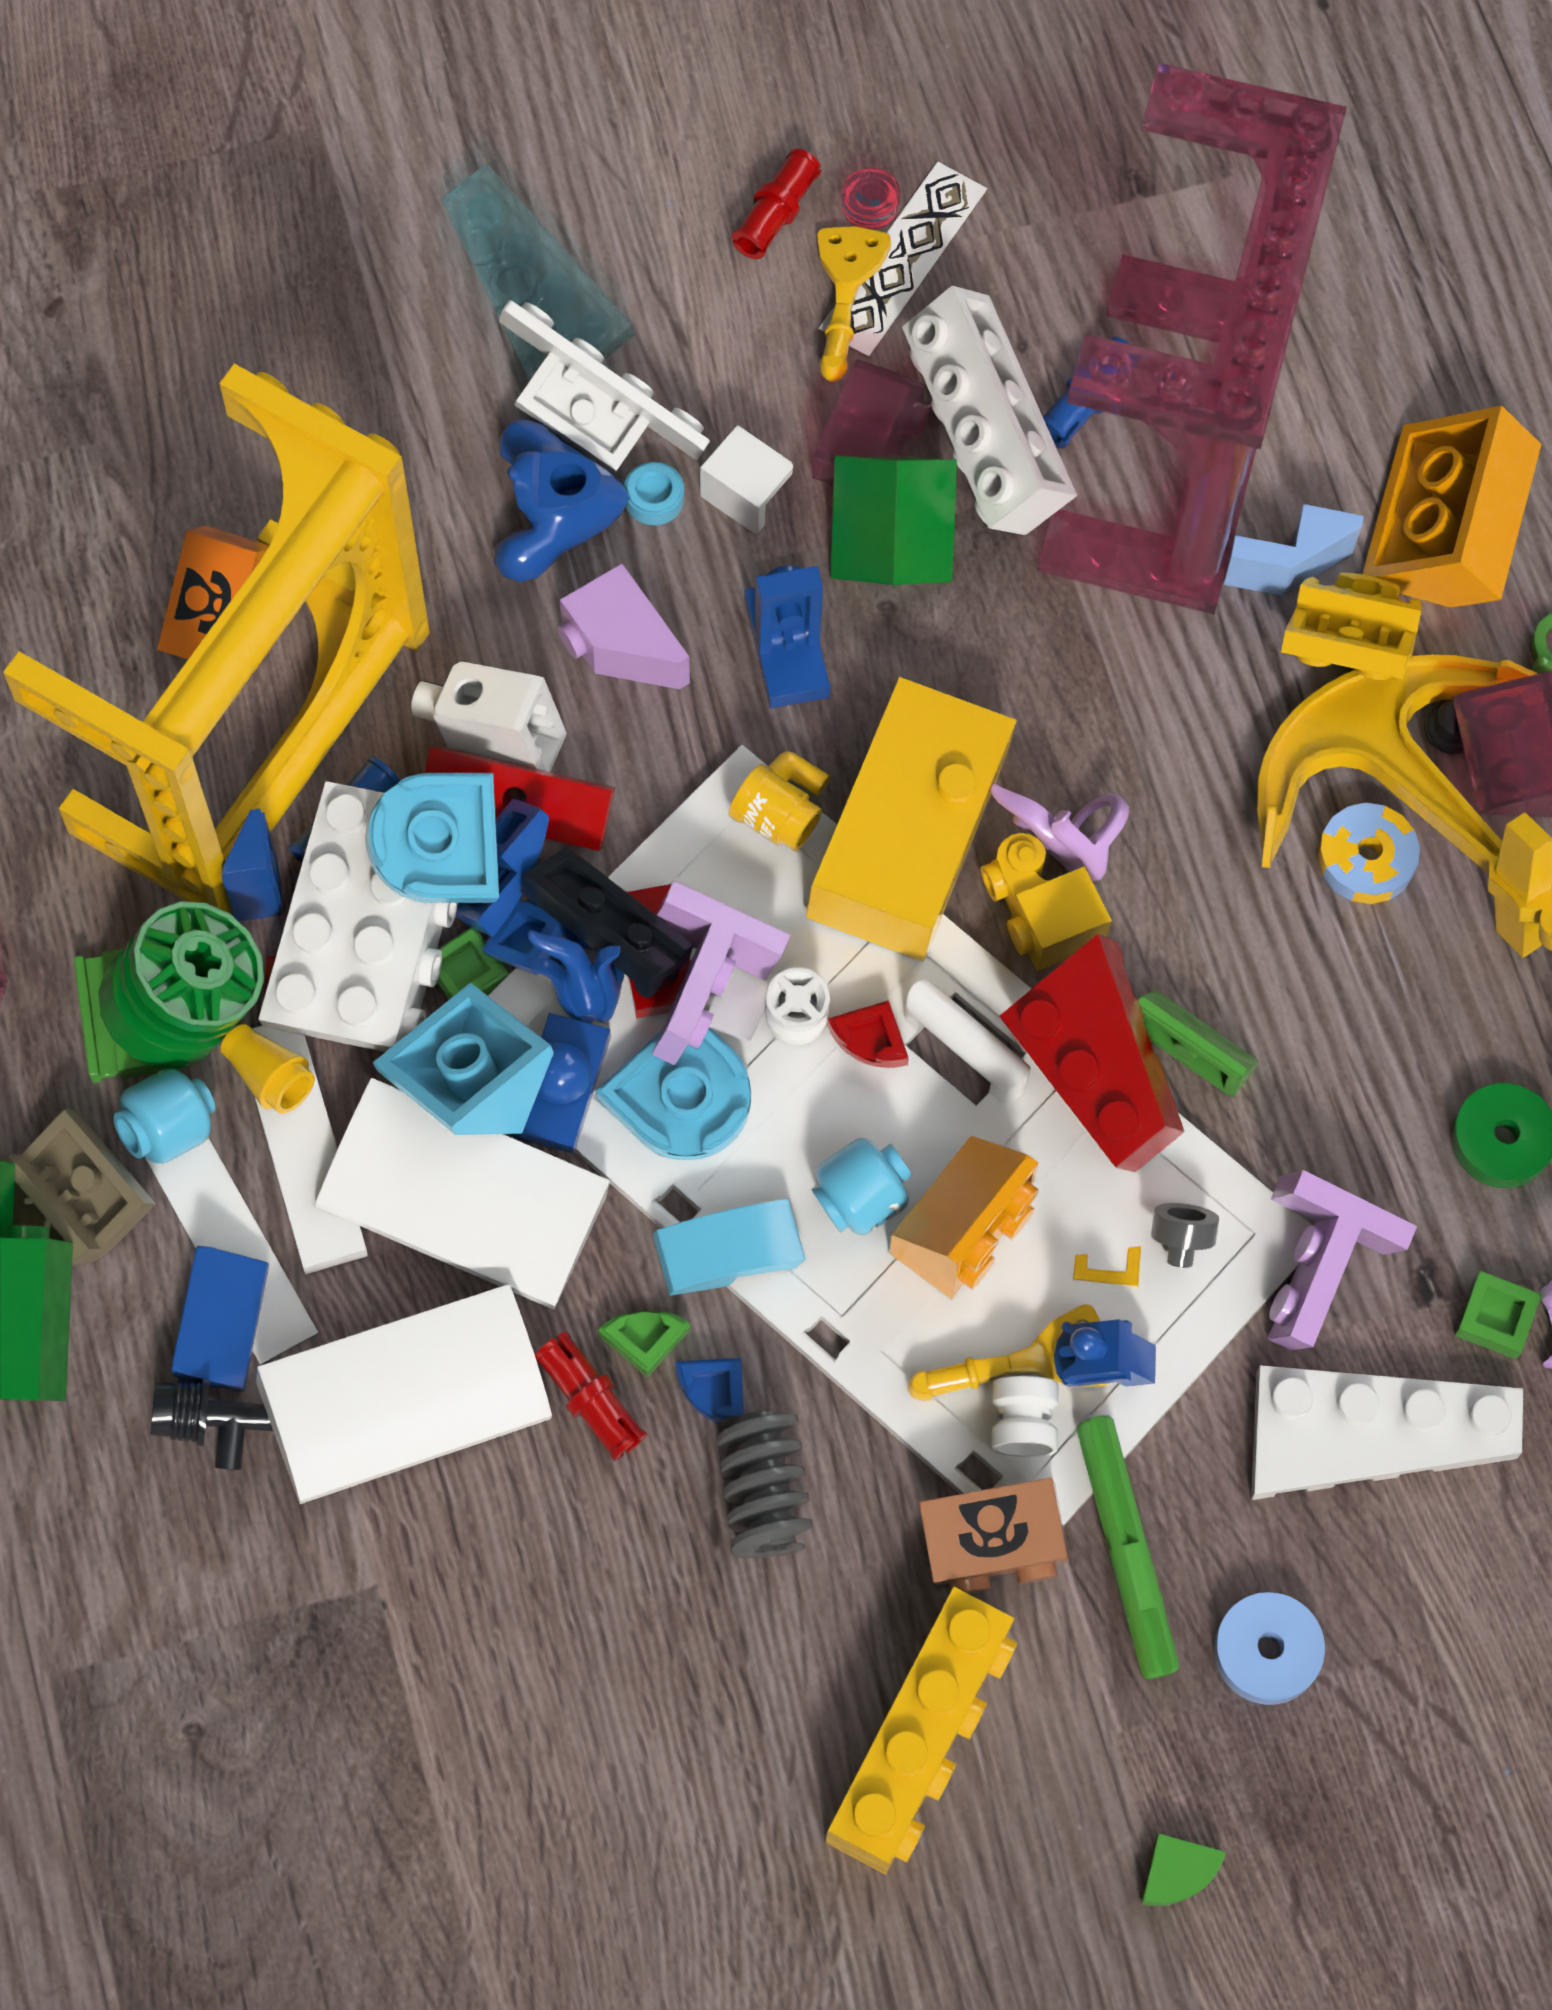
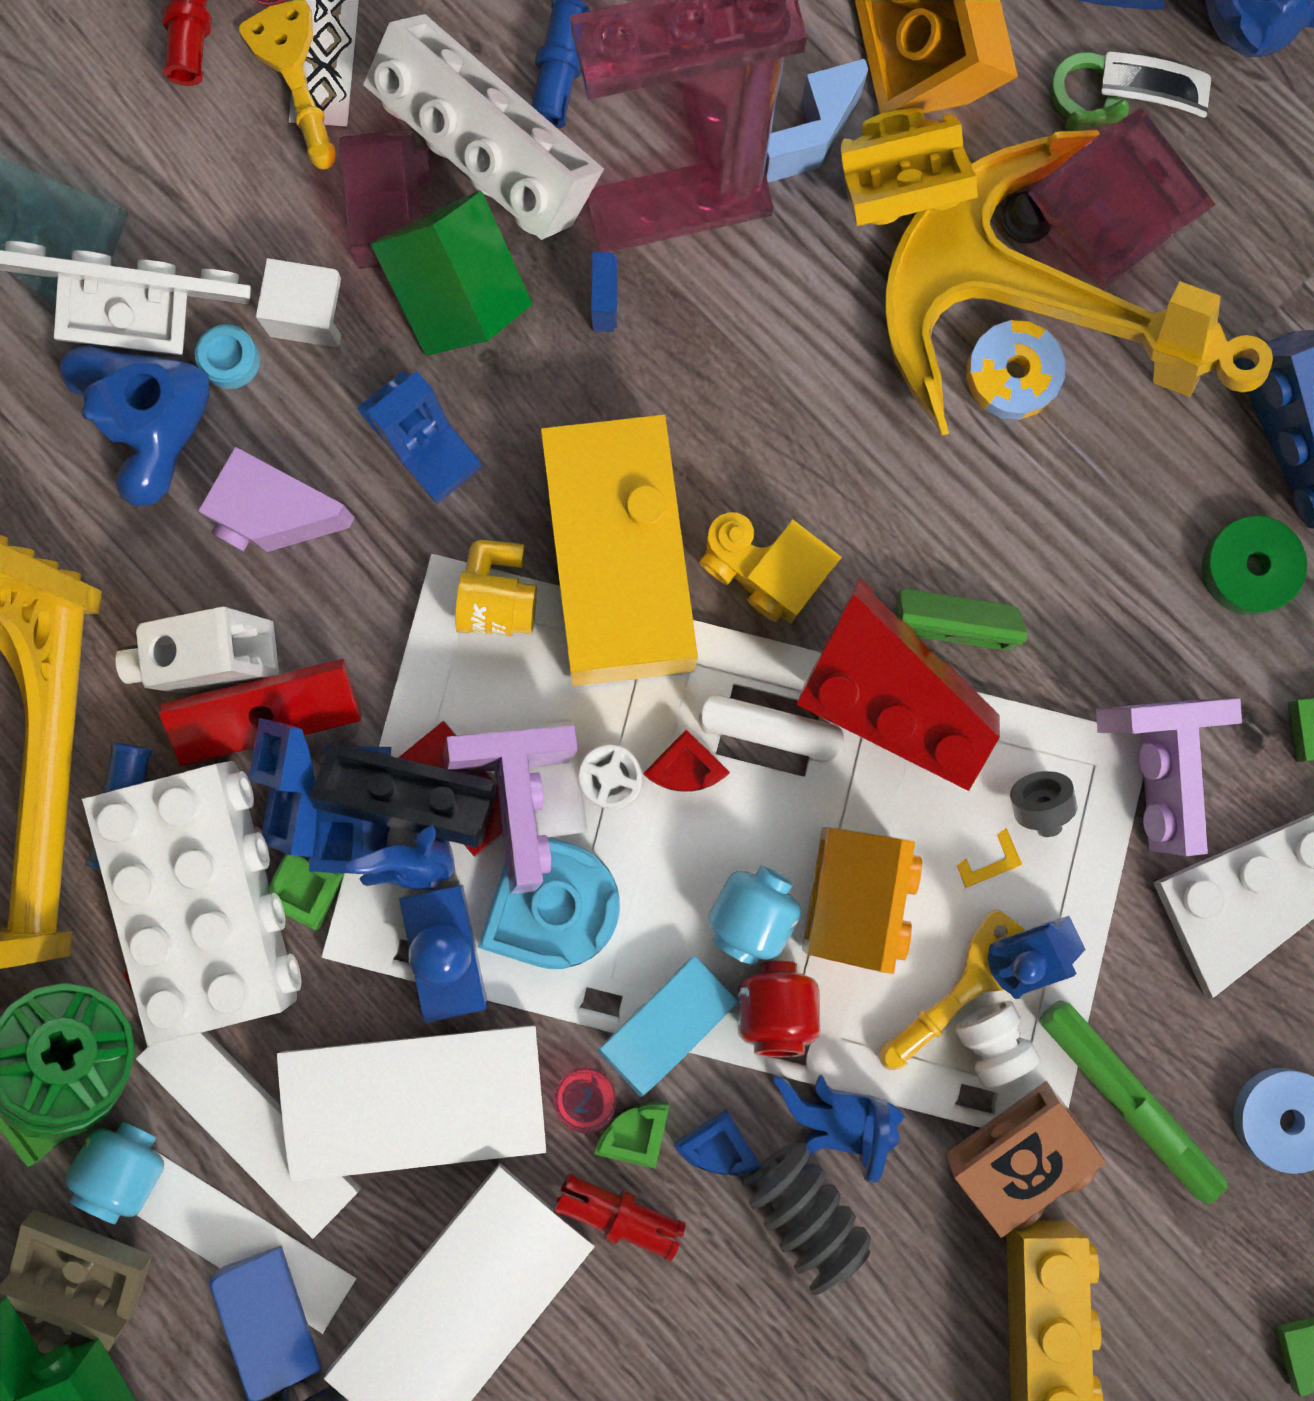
camera: 30 degrees left, 15 degrees up
(253, 872) = (64, 912): blue slope -> none
(270, 1071) = (183, 1088): yellow cone -> none
(437, 838) = (211, 807): medium azure tile -> none
(470, 1066) = (356, 1001): medium azure slope -> none
(616, 1282) = (585, 1099): none -> clear pink tile
(838, 1281) = (779, 1010): none -> red head
(852, 1430) = (847, 1124): none -> blue piece
(1021, 600) = (604, 291): none -> blue tile
(1062, 836) = (760, 501): lavender piece -> none

